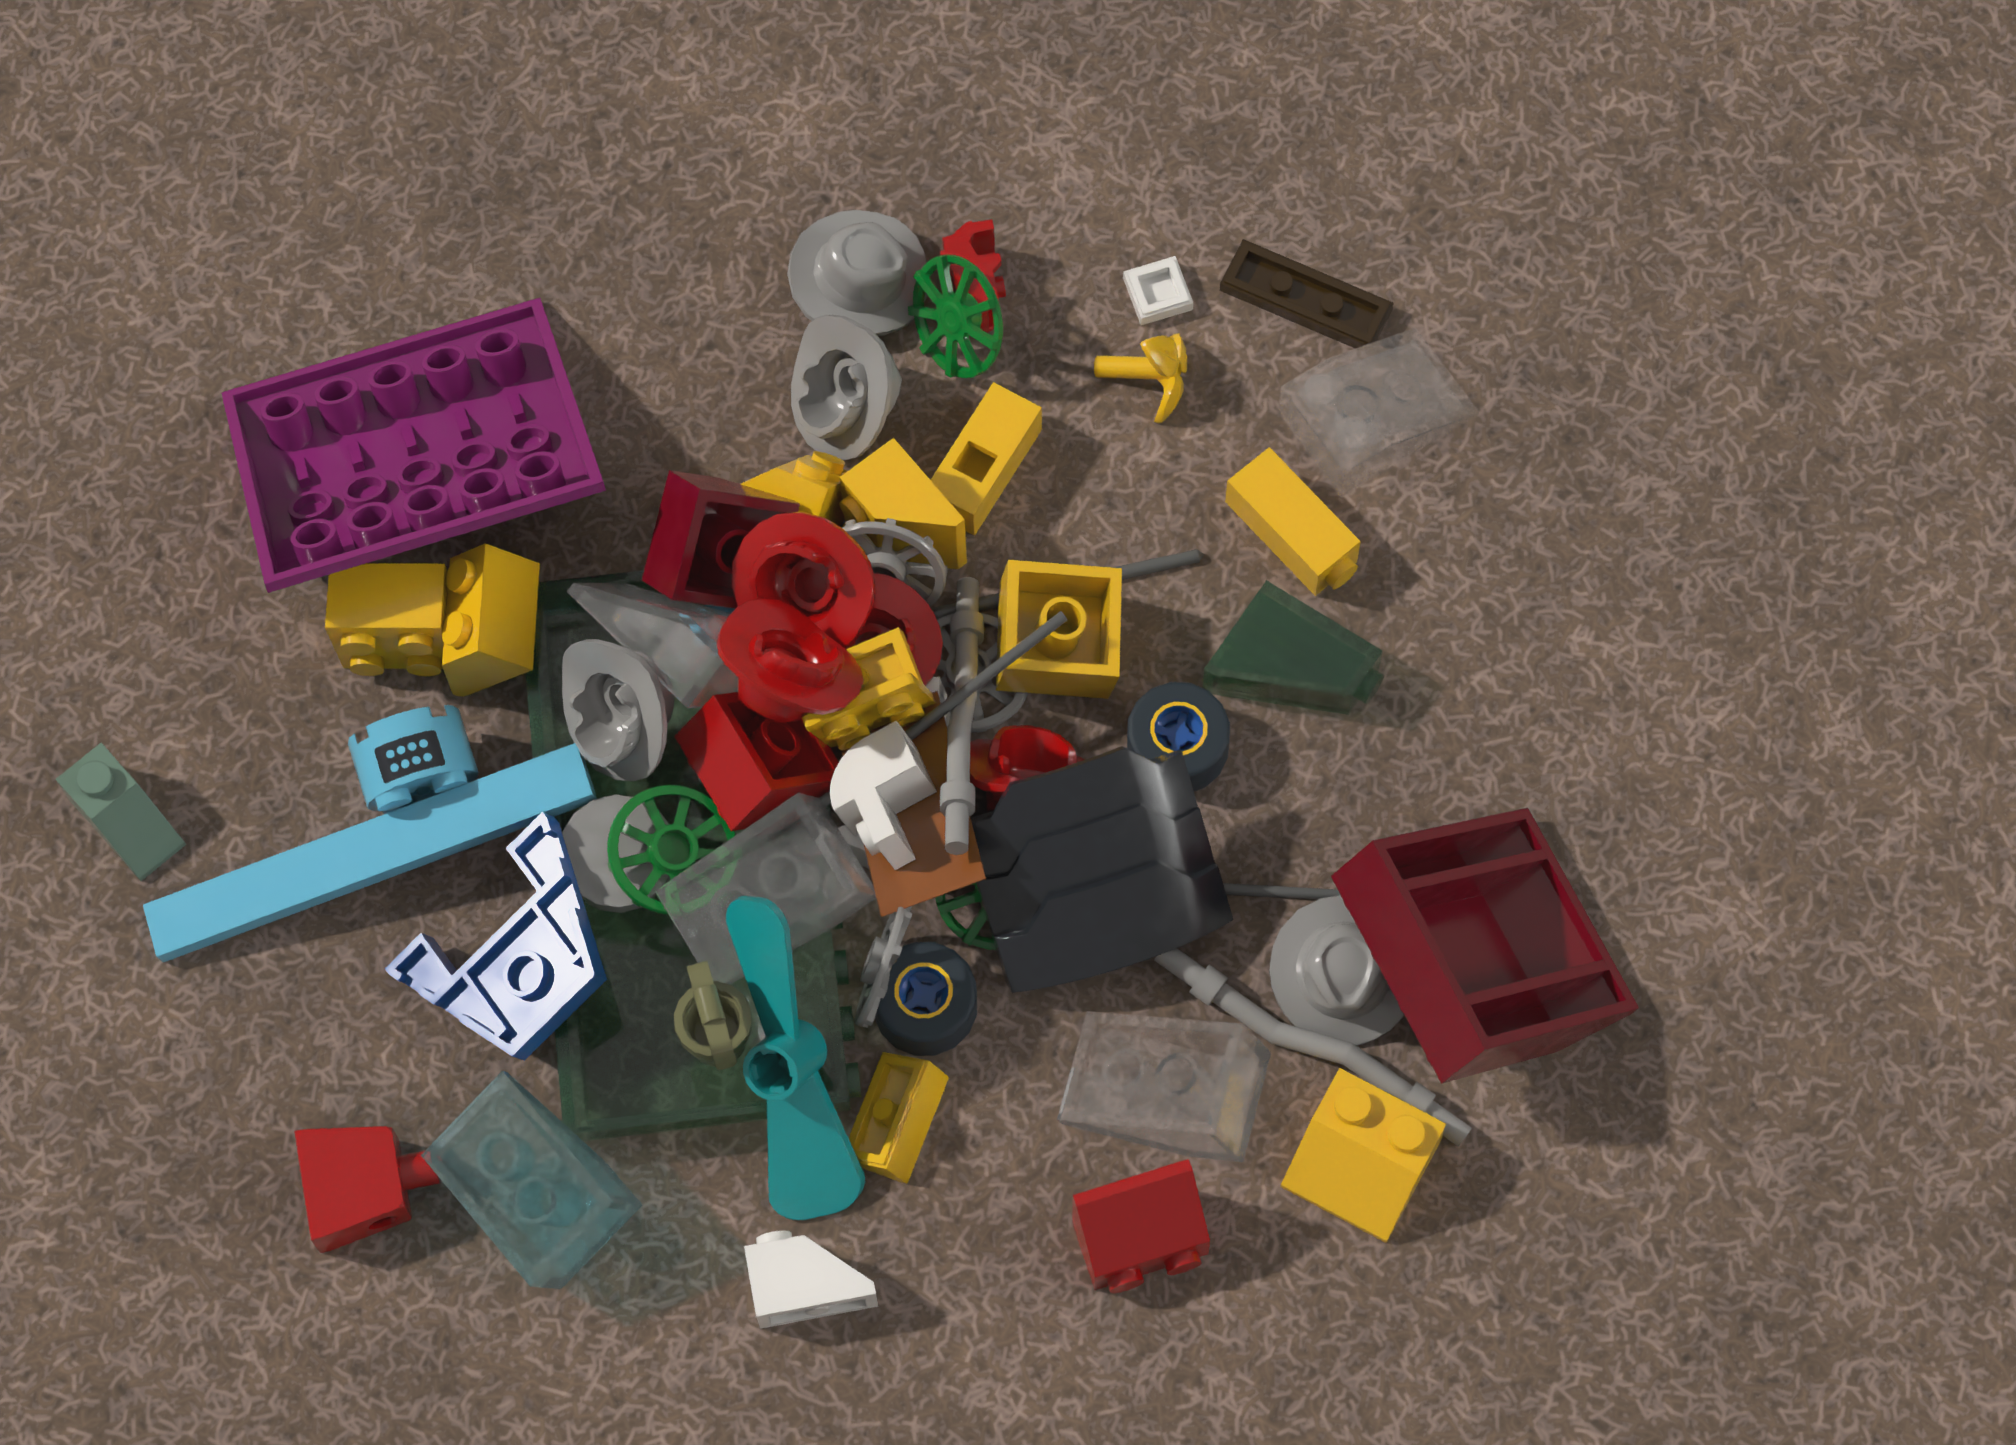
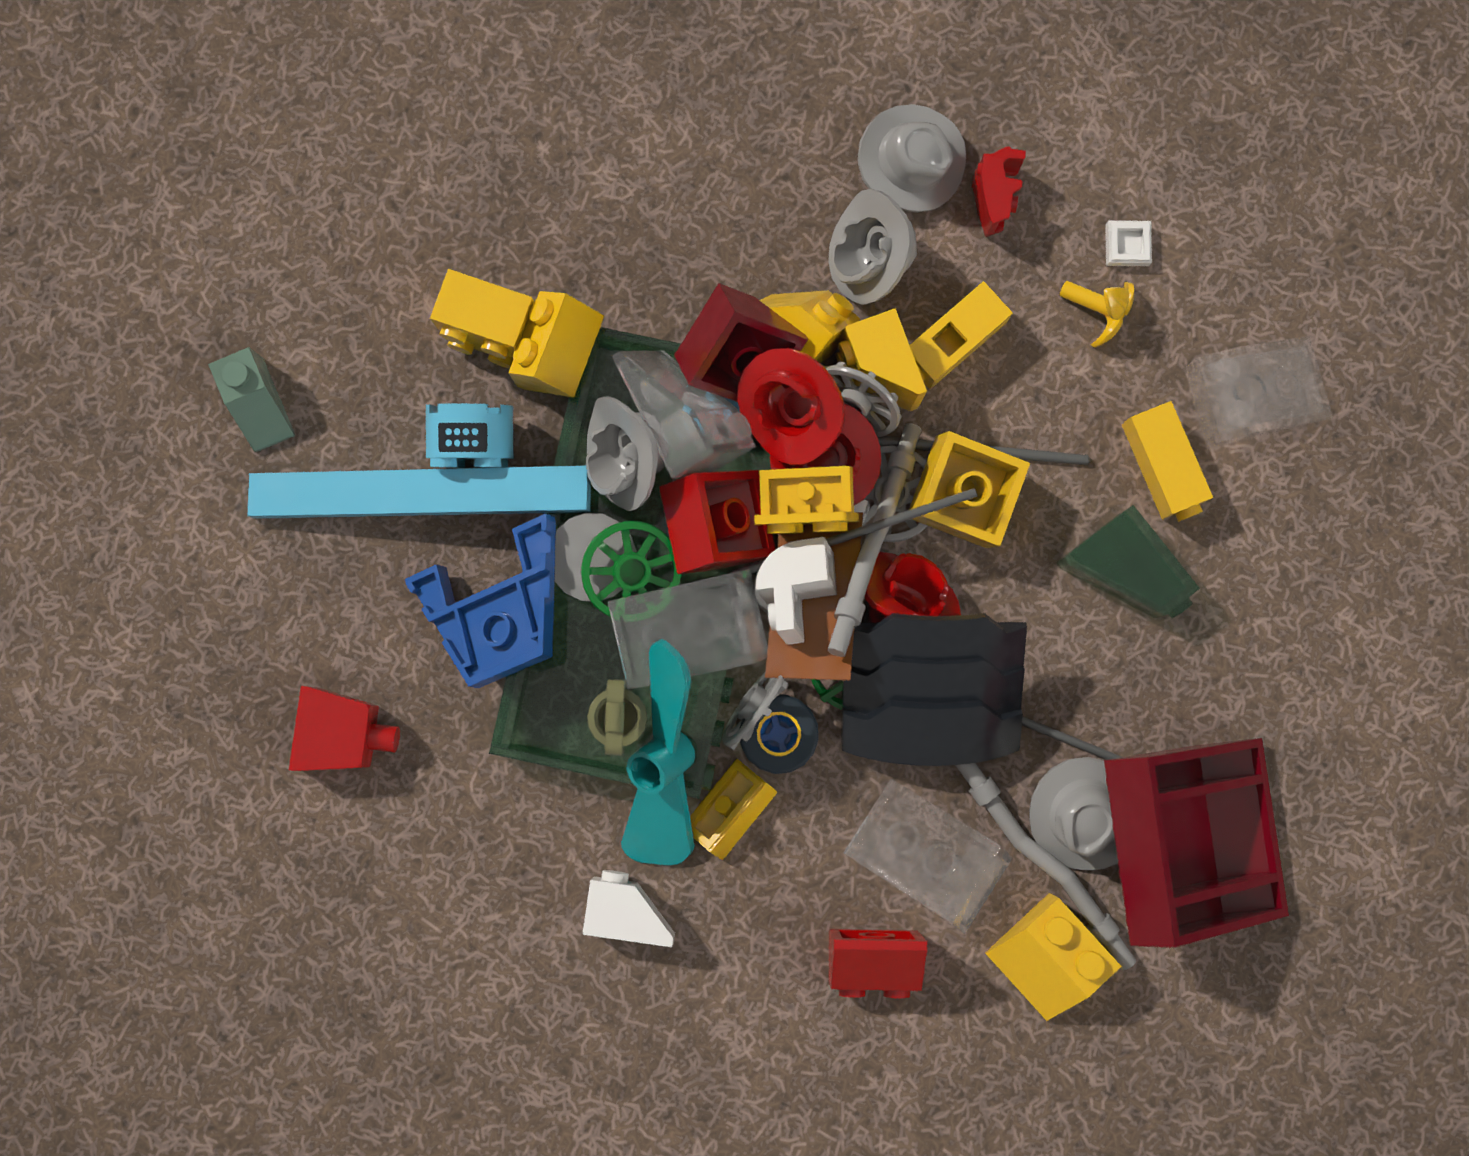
camera: 20 degrees right, 15 degrees up
(408, 444) = (537, 192): magenta slope -> none
(530, 1183) = (453, 782): clear light blue slope -> none
(786, 662) = (757, 470): red hat -> none
(956, 316) = (974, 219): green wheel -> none
(1182, 716) = (1039, 592): black wheel -> none
(1305, 296) = (1237, 284): dark brown tile -> none

